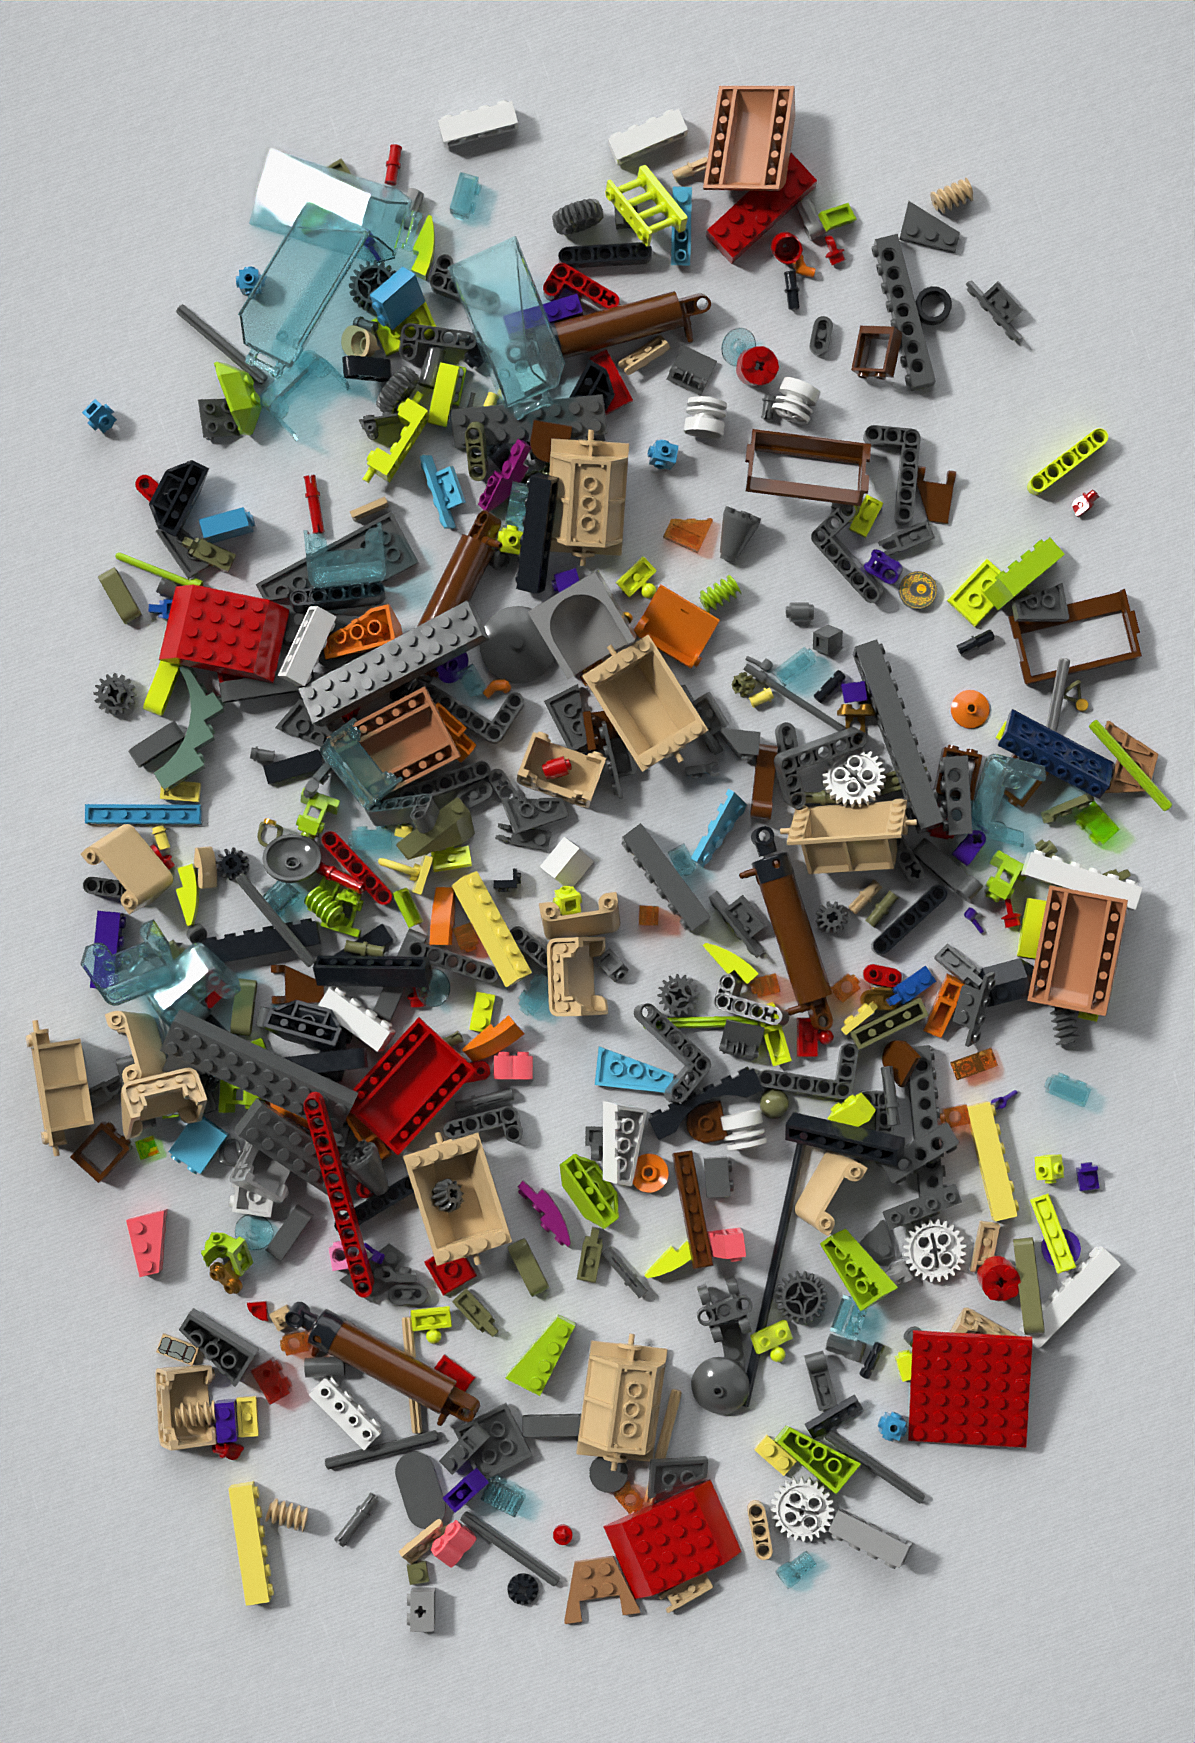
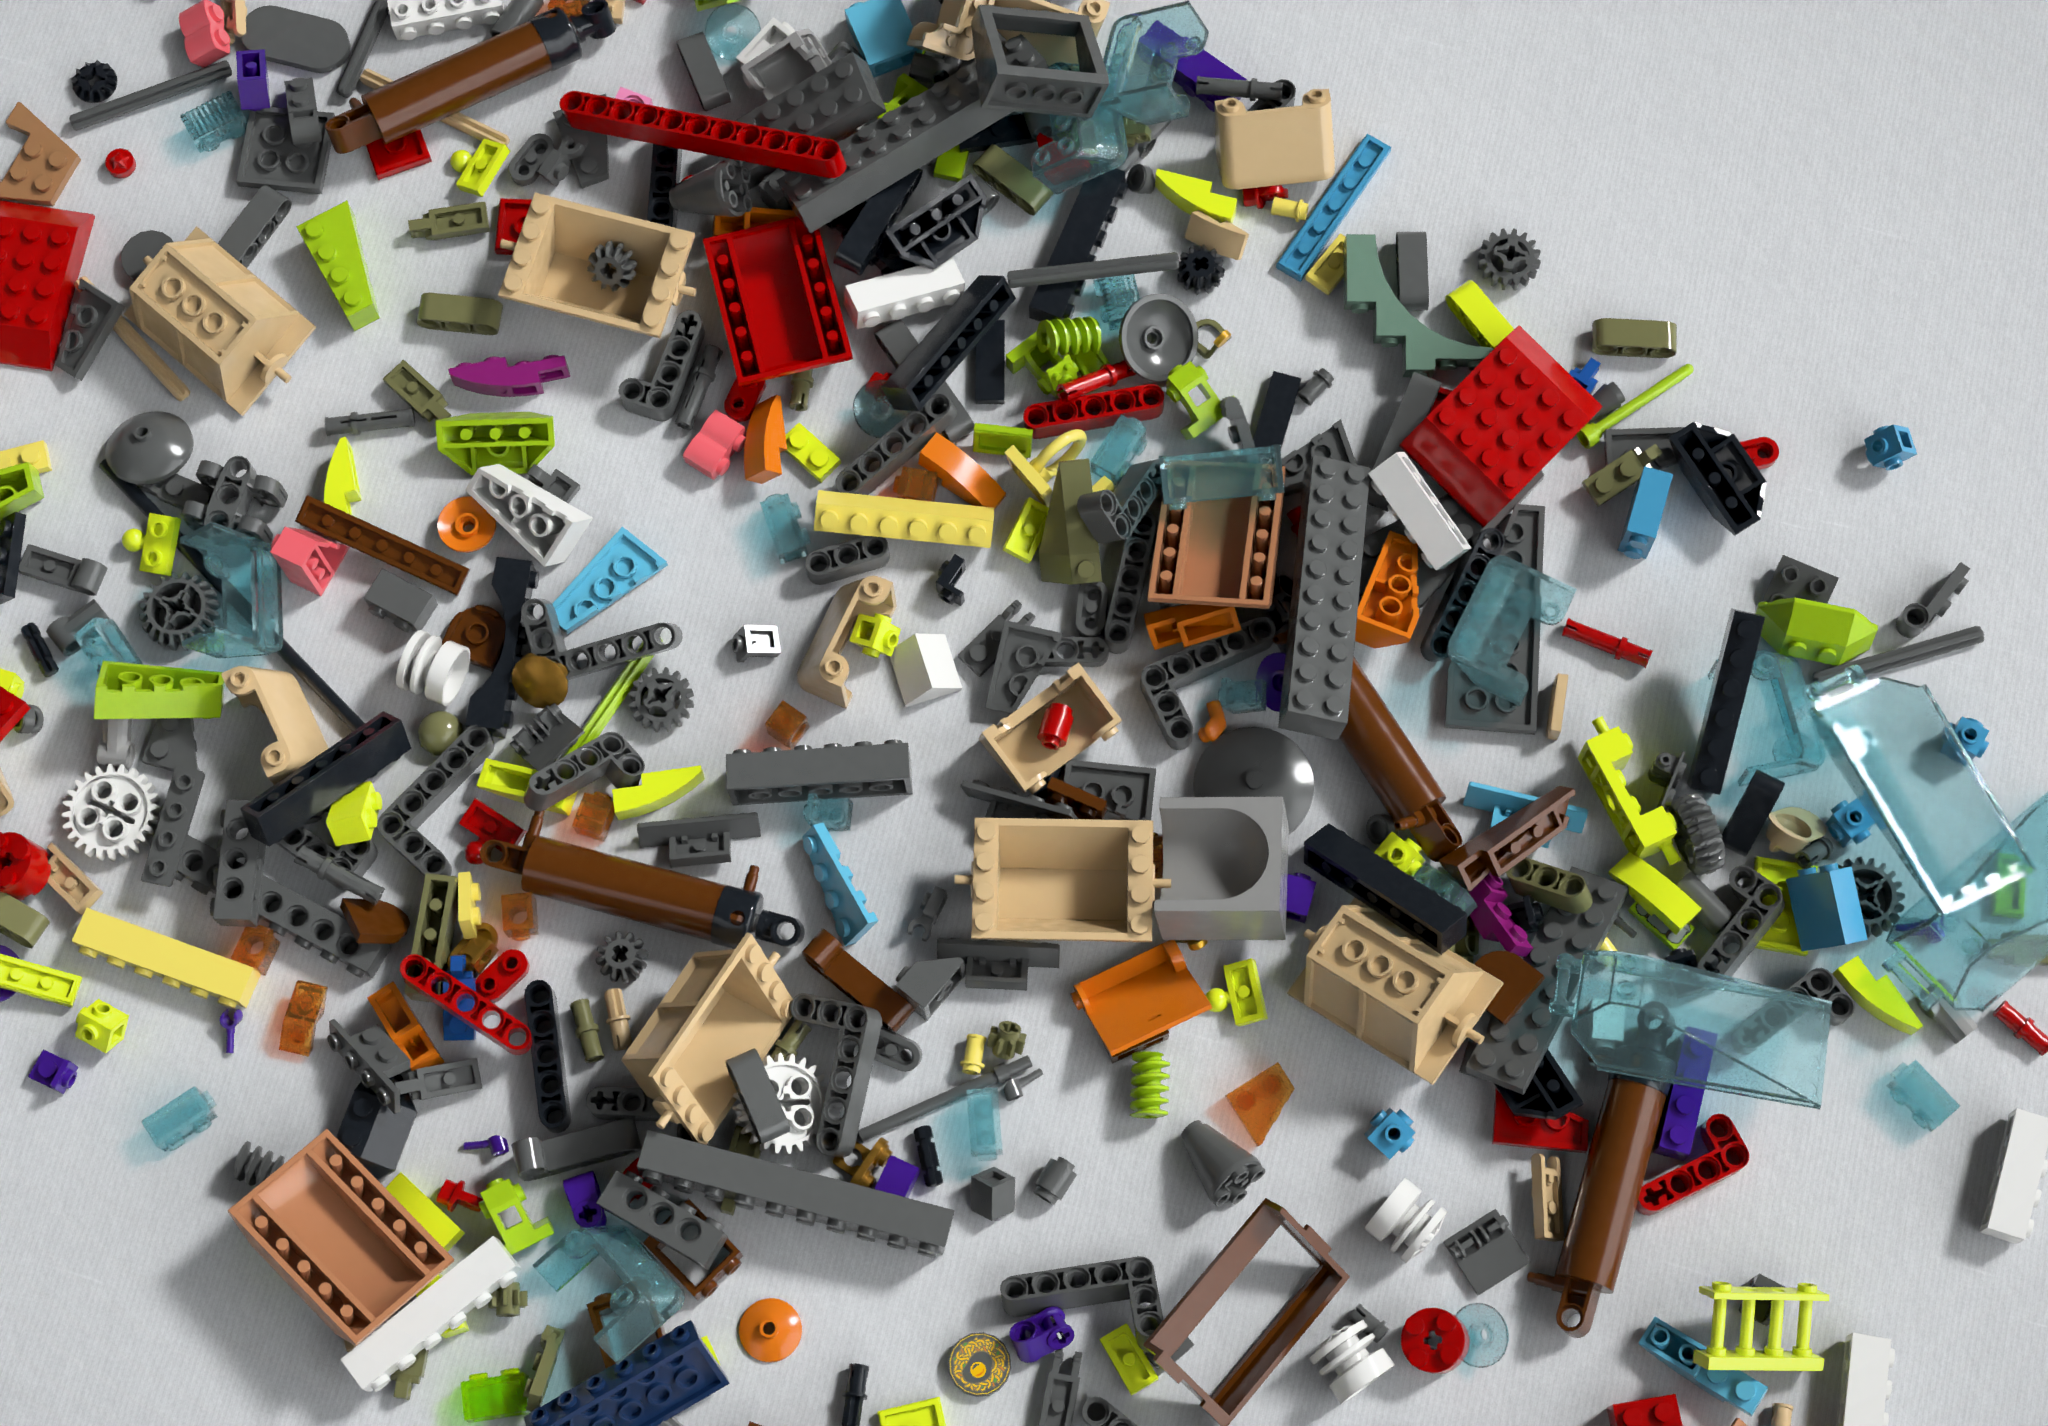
camera: 125 degrees right, 15 degrees down
(107, 909) = (1239, 88): none -> dark grey pin
(177, 339) = (1938, 605): none -> dark grey plate
(200, 1045) = (1030, 87): none -> dark grey windscreen
(297, 986) = (995, 256): reddish brown flag -> none
(313, 416) = (1725, 701): none -> black brick
(341, 319) = (1844, 829): none -> dark azure brick
(364, 948) = (985, 356): olive pin -> none
(377, 1256) = (602, 150): dark purple hand -> none
(465, 485) = (1510, 839): none -> reddish brown wedge
(573, 976) = (769, 579): tan windscreen -> none
(577, 216) = (1801, 1226): dark grey gear -> none
(613, 249) = (1733, 1223): black beam -> none
(628, 1489) = (109, 269): clear orange brick -> none
(713, 1064) = (540, 681): none -> pearl gold dish
(771, 1261) = (248, 594): none -> clear light blue windscreen
(863, 787) = (757, 1096): none -> dark grey beam
(919, 966) = (458, 991): none -> red beam

